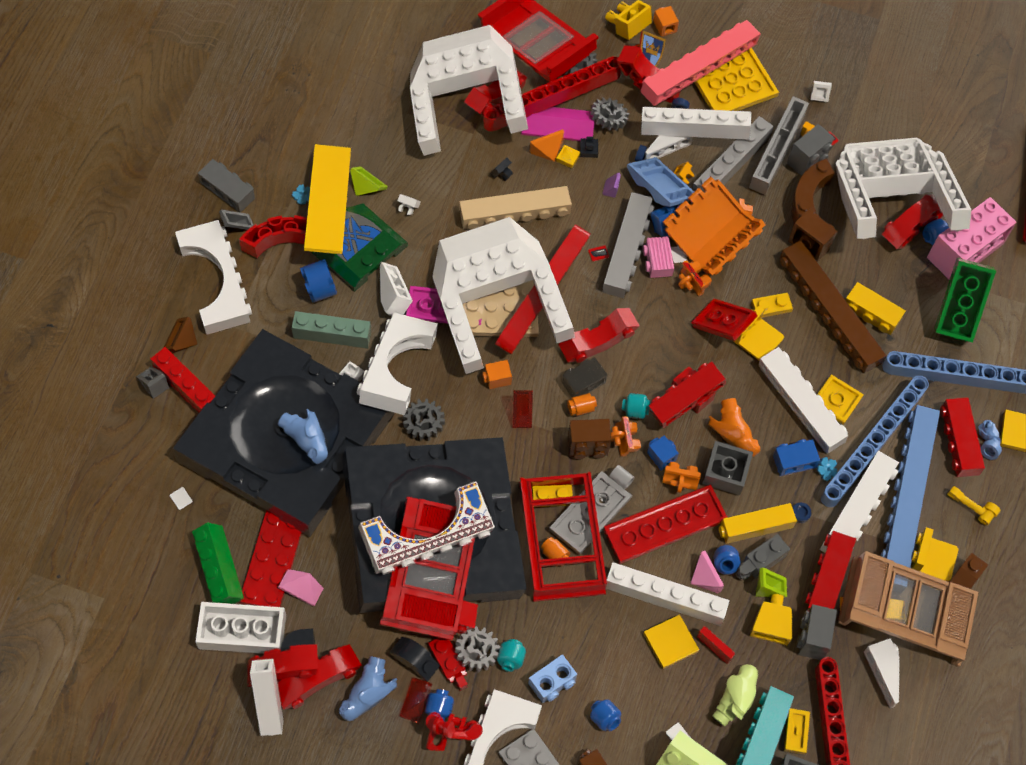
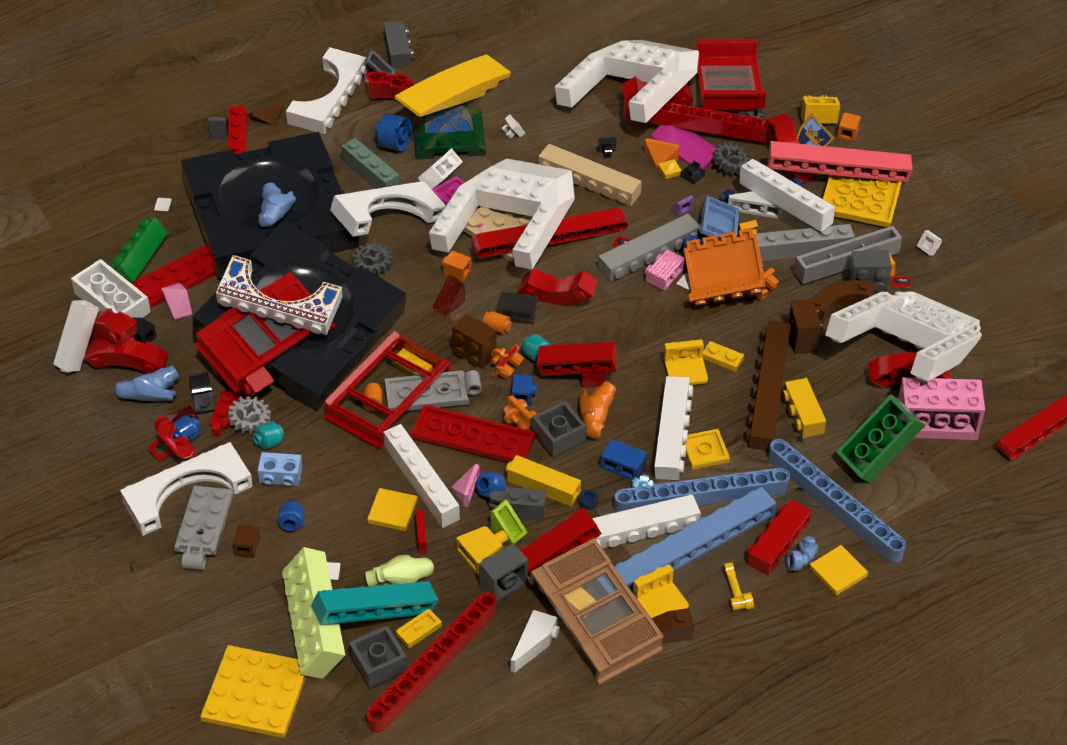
camera: 45 degrees right, 15 degrees down
(365, 182) = (499, 98): lime slope -> none
(691, 279) = (669, 297): orange hips -> none
(724, 319) = (666, 334): red tile -> none

